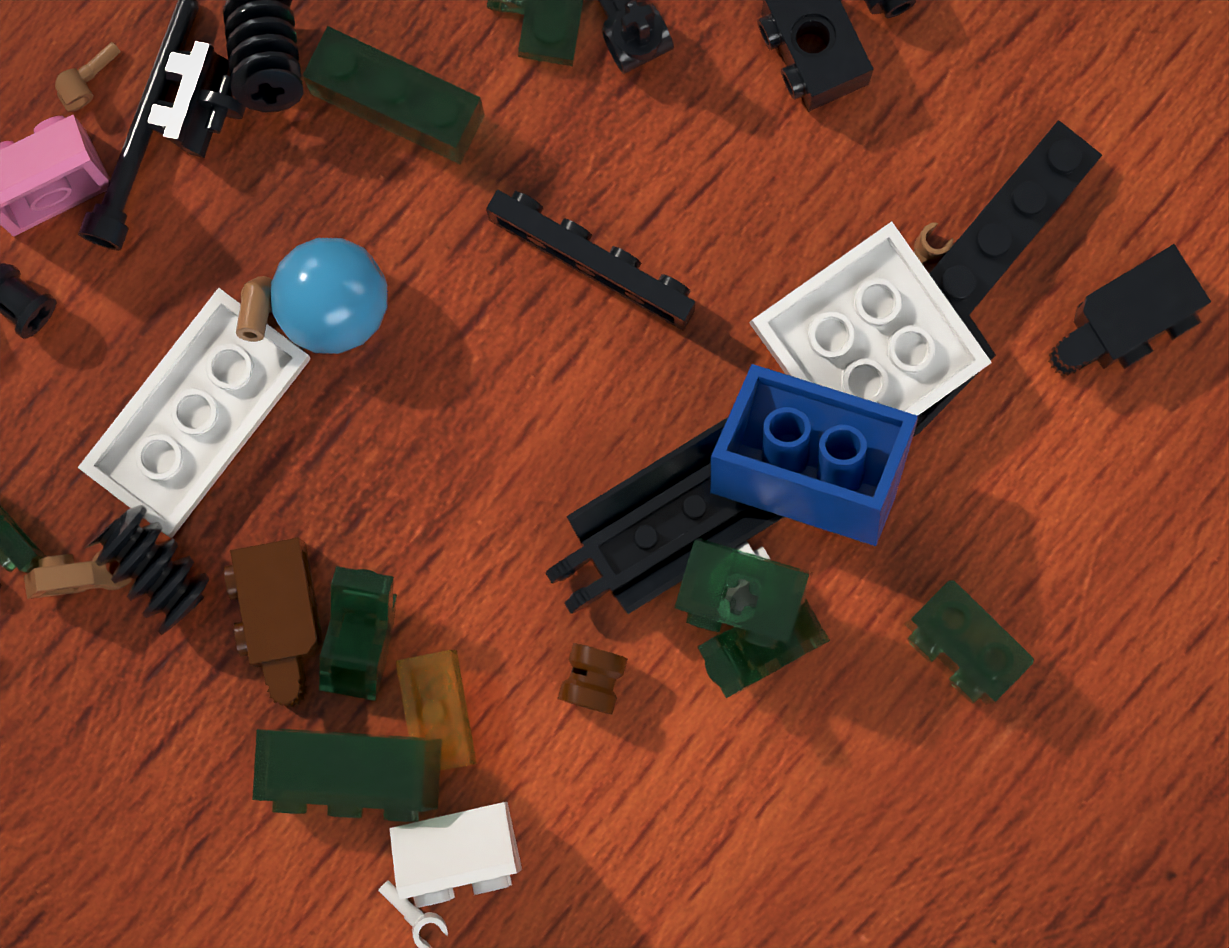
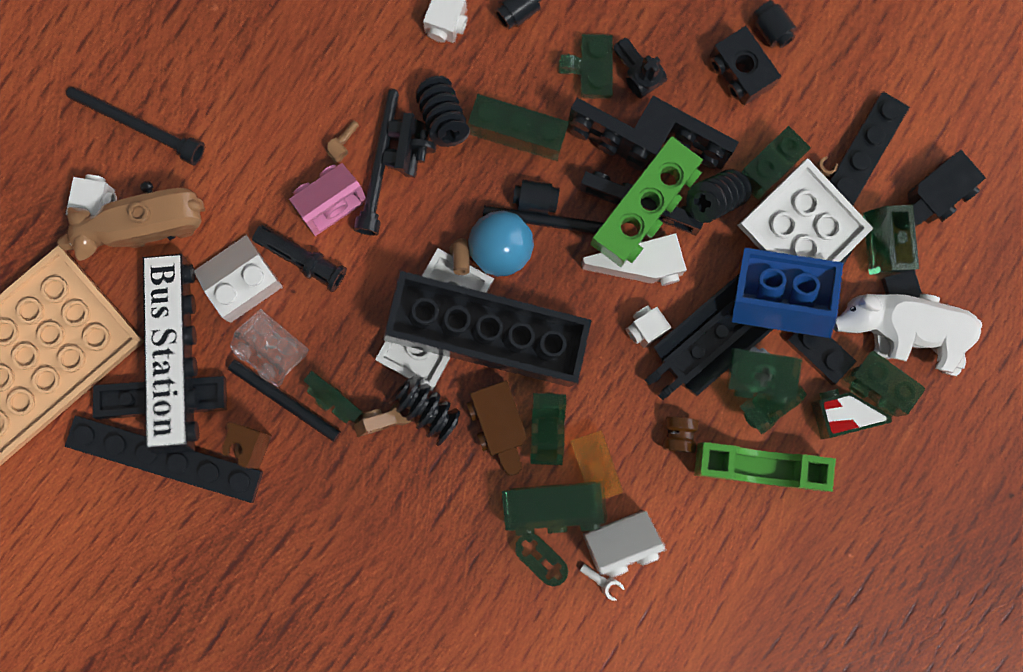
camera: 20 degrees left, 0 degrees up
(273, 442) = (486, 329): none -> black brick
(302, 869) = (536, 566): none -> clear green beam
(407, 222) = (536, 197): none -> black brick
(433, 268) = (551, 220): none -> black bar
(567, 479) = (648, 326): none -> white plate
(582, 363) = (658, 262): none -> white slope
(623, 141) = (646, 140): none -> black bracket
(643, 188) = (672, 159): none -> bright green brick
(725, 265) = (718, 195): none -> black piece
(728, 757) = (765, 467): none -> bright green arch
(837, 220) = (775, 161): none -> clear green brick
(873, 576) = (823, 355): none -> black plate
(892, 685) = (845, 414): none -> slope
(1022, 388) = (892, 240): none -> brick
(1035, 478) = (902, 283): none -> black tile
(1040, 540) = (913, 322): none -> white animal

